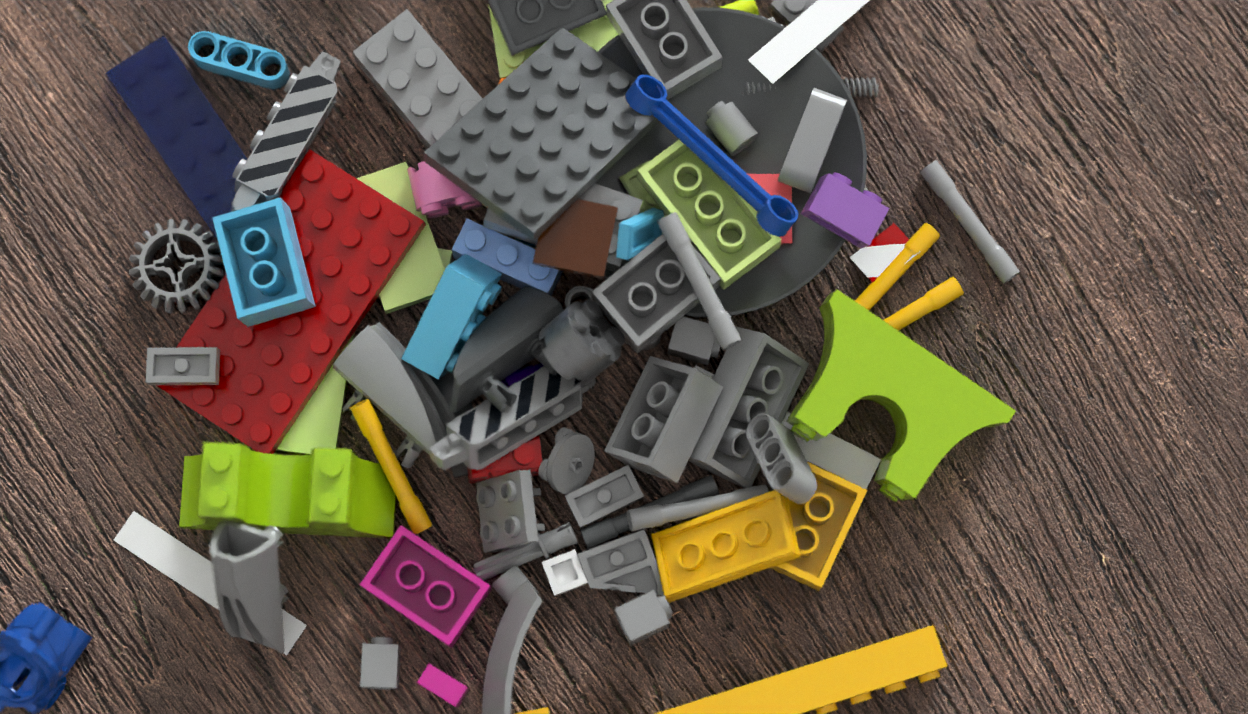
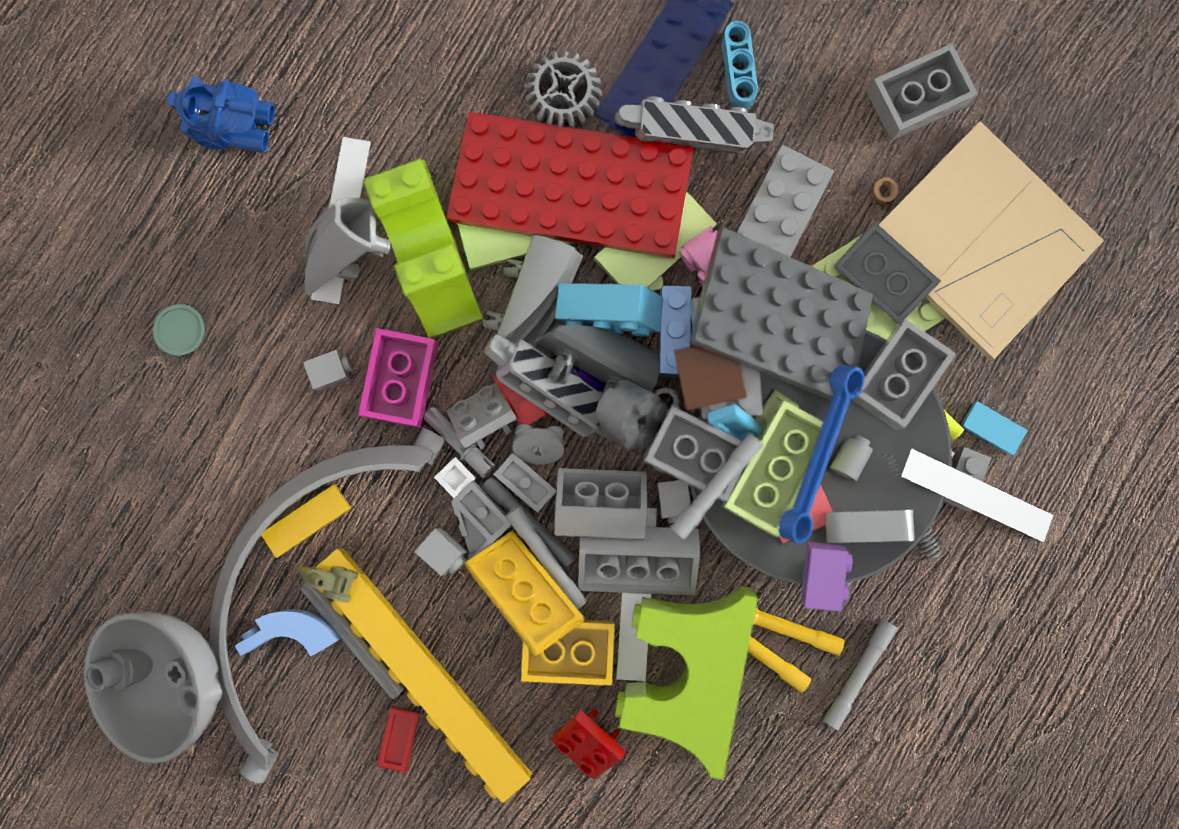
camera: 65 degrees right, 5 degrees up
(183, 366) = (487, 125): light grey plate -> none
(263, 262) = (589, 148): medium azure brick -> none
(373, 431) = (497, 287): yellow piece -> none
(443, 685) = (331, 423): dark pink piece -> none
(781, 458) = (606, 608): light grey beam -> none
(881, 252) = (806, 617): white sticker -> none
(922, 546) = (588, 744): none -> red plate

